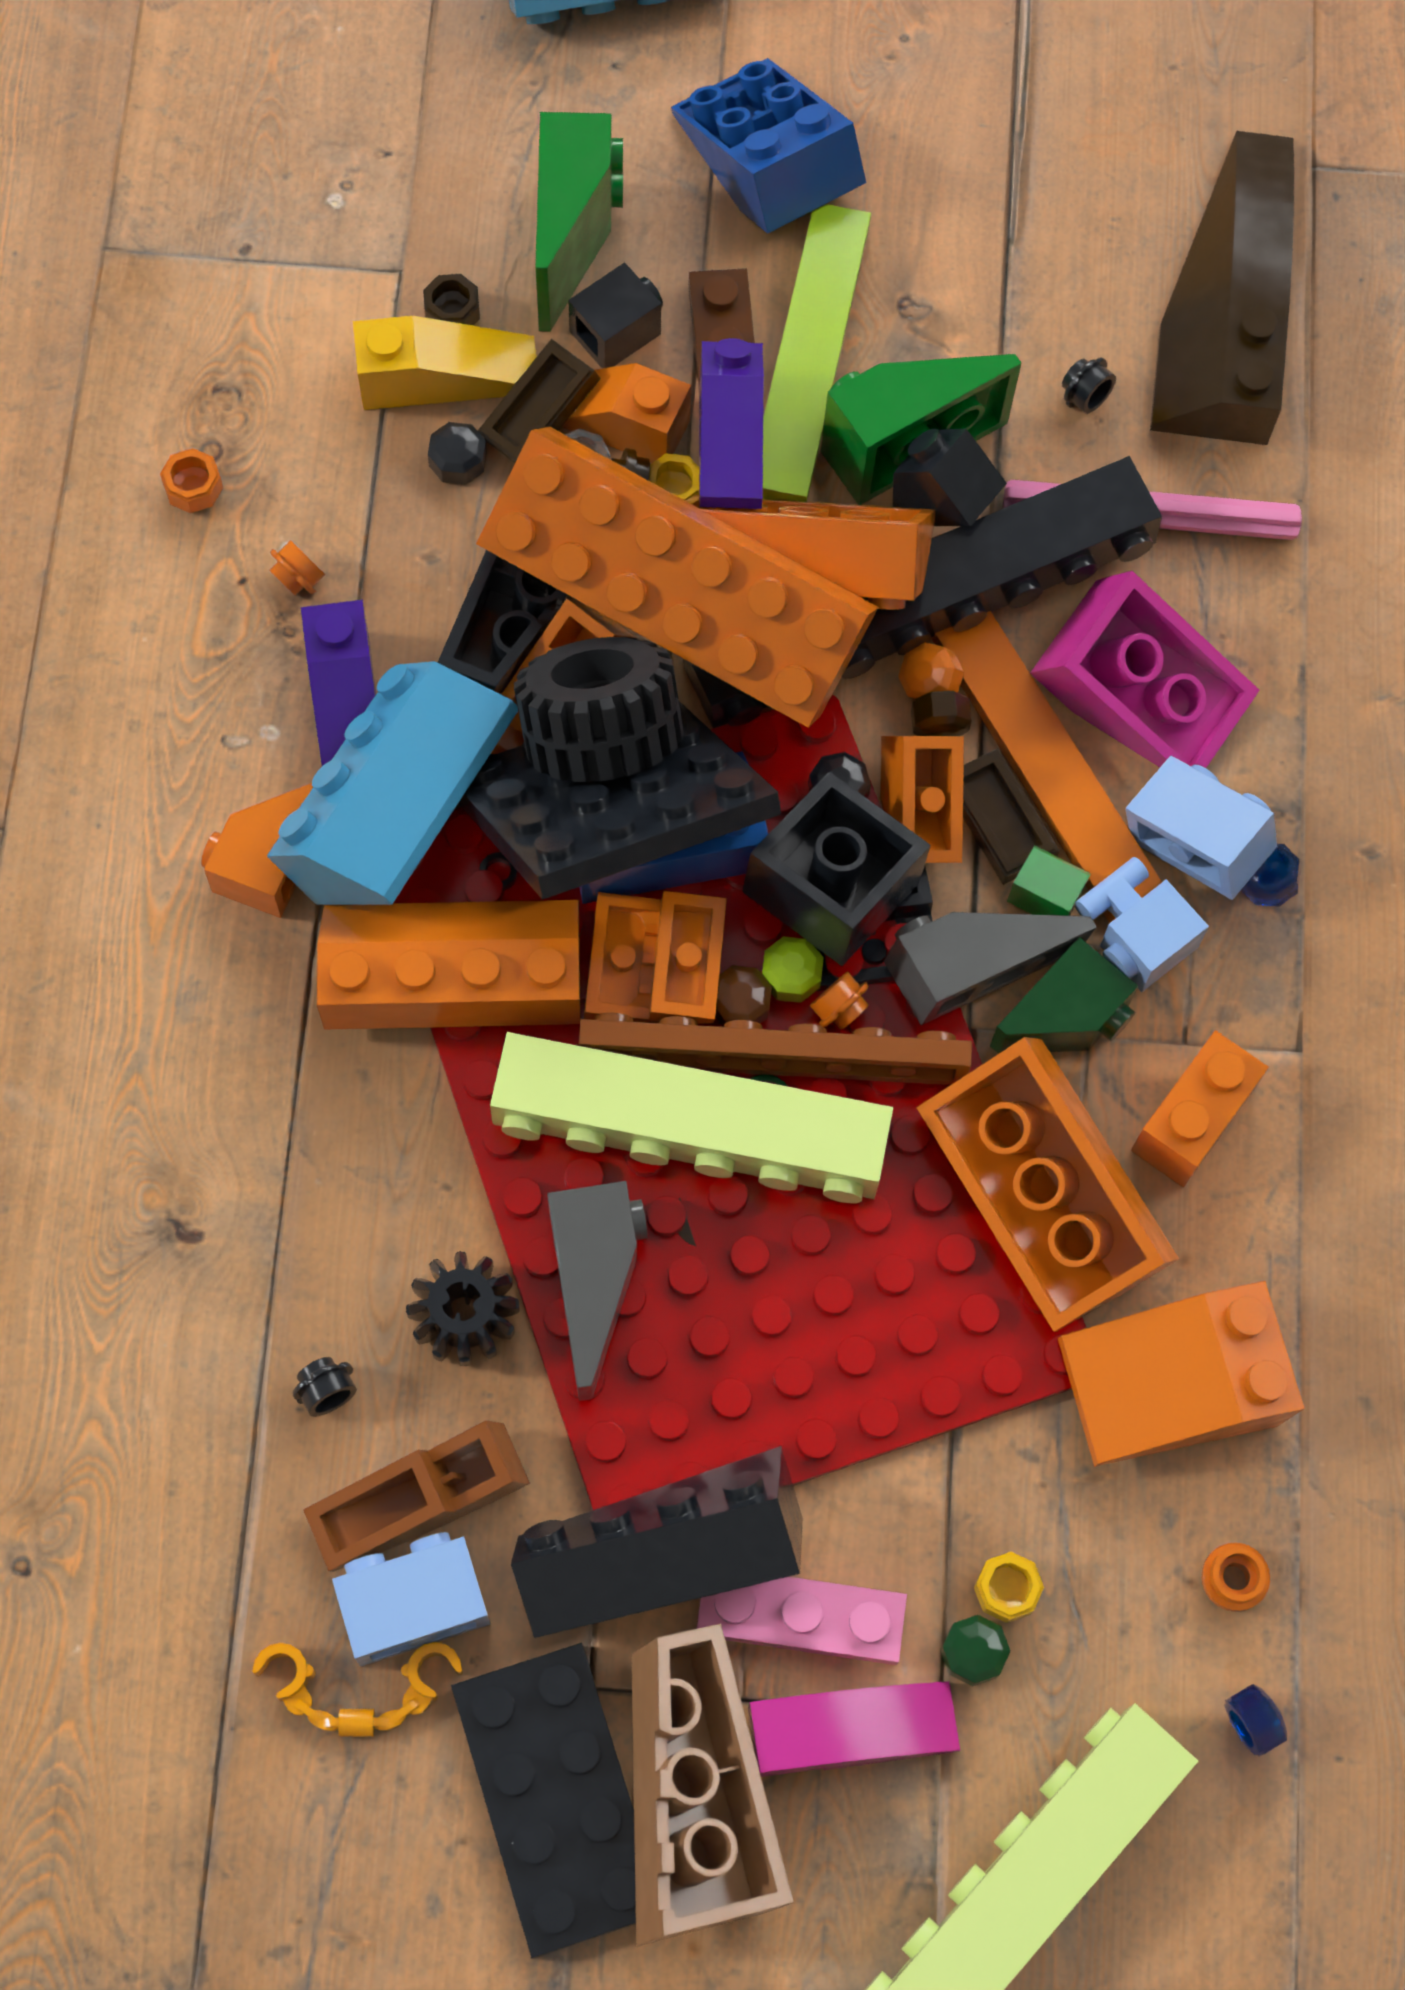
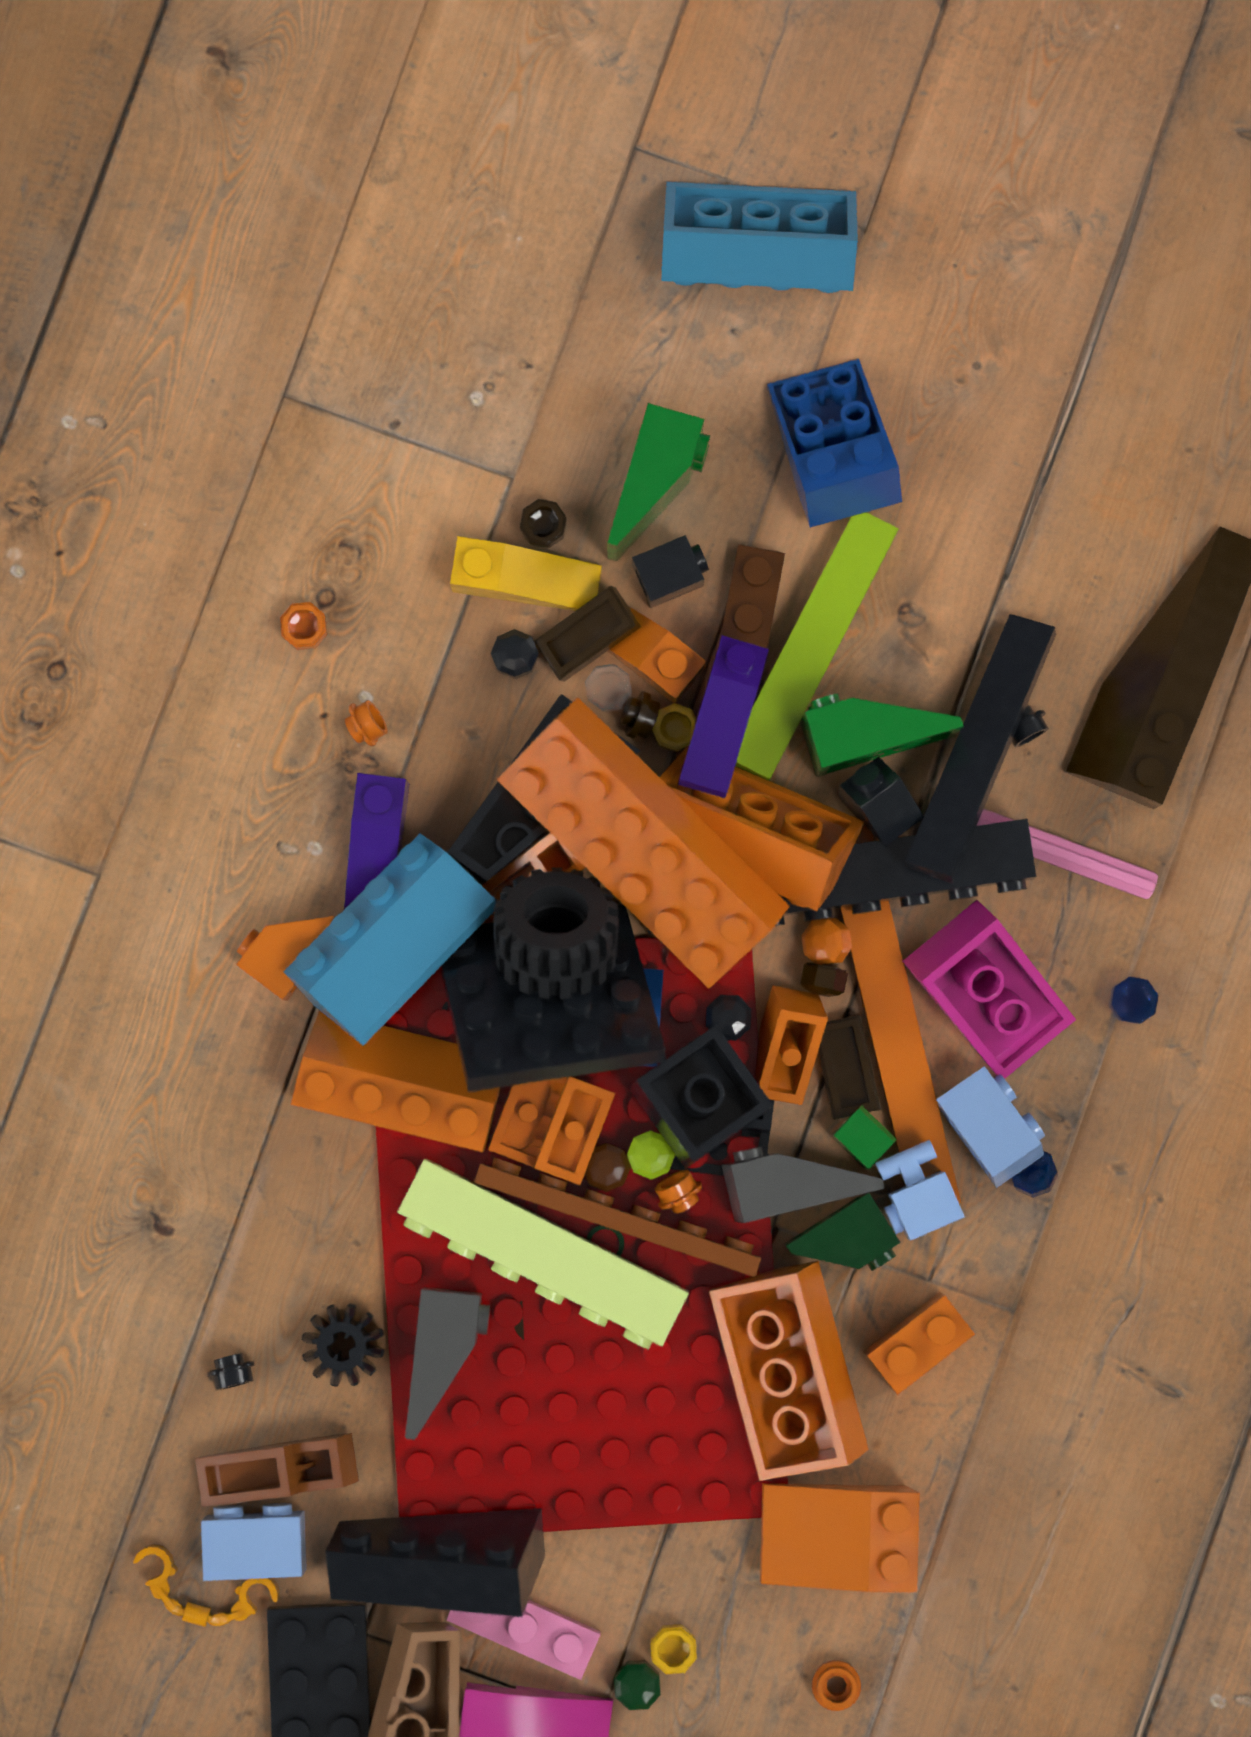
camera: 20 degrees right, 15 degrees up
(1046, 405) = (980, 748): none -> black tile
(1320, 650) = (1133, 1000): none -> clear blue tile

